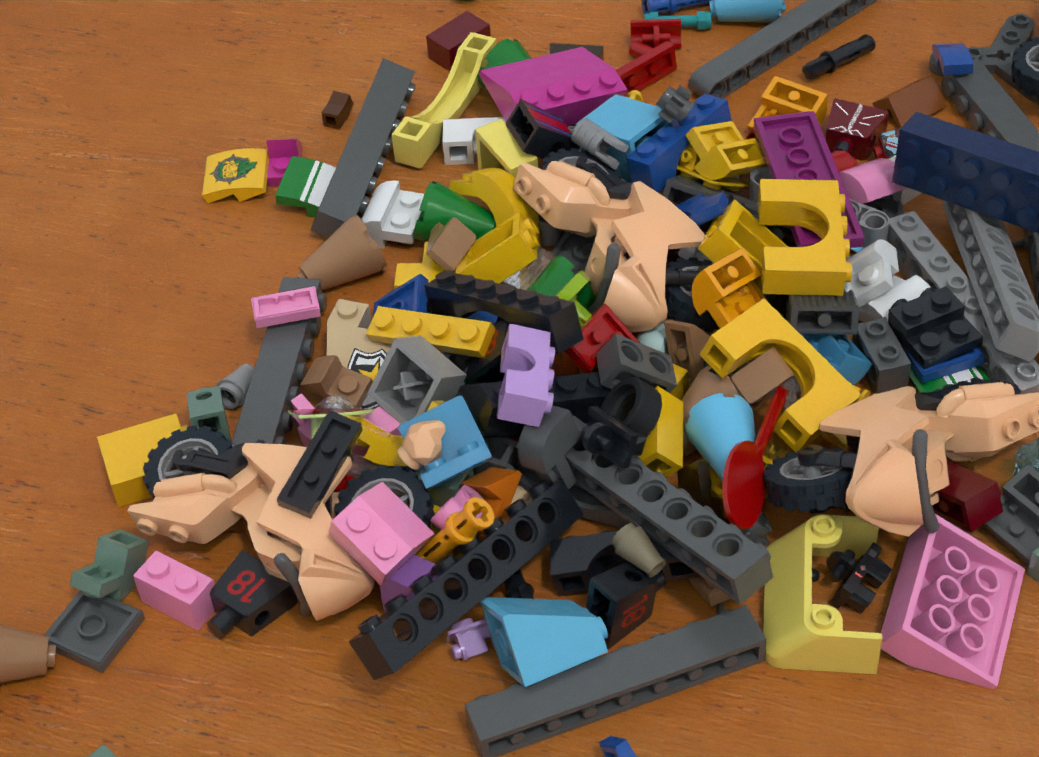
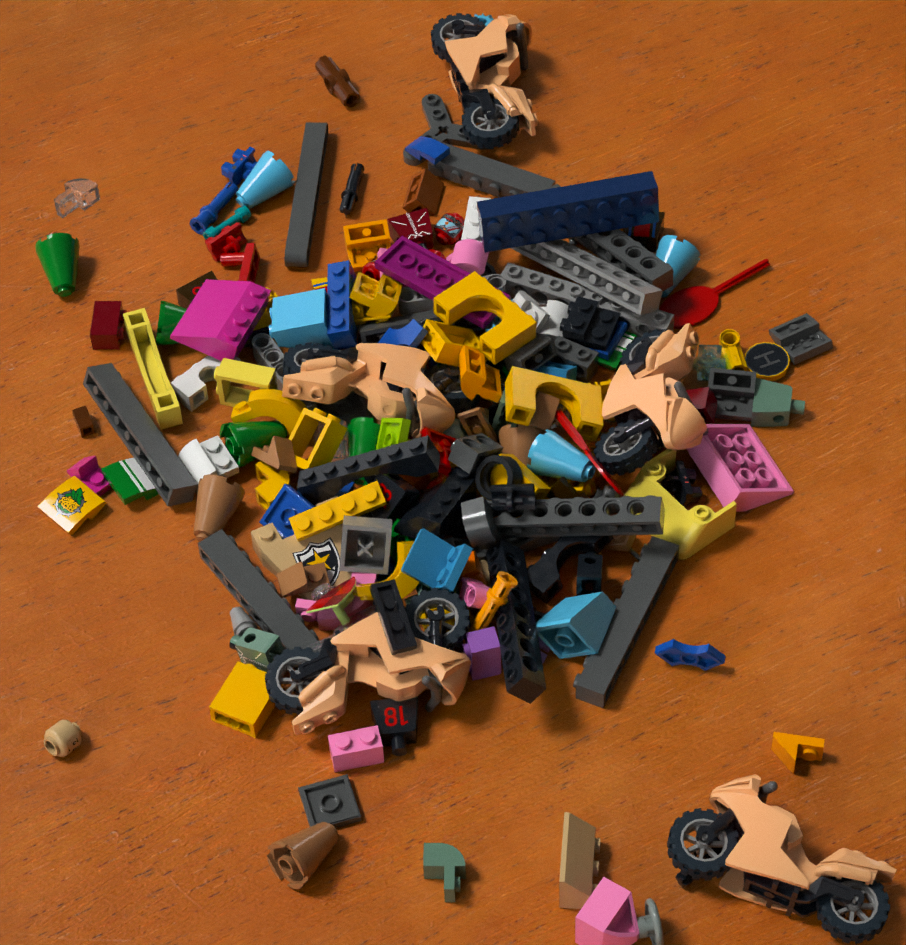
camera: 45 degrees left, 5 degrees up
(115, 563) = (307, 762): sand green brick -> none
(285, 307) = (229, 557): bright pink plate -> none
(380, 532) = (461, 630): bright pink slope -> none
(422, 444) = (429, 568): light nougat rock -> none
(527, 376) = (455, 501): lavender arch -> none
(538, 130) = (265, 353): black torso -> none
(597, 141) = (299, 335): light grey hinge -> none
(636, 548) = (581, 545): dark tan cone -> none
(674, 104) = (331, 282): dark grey gear -> none

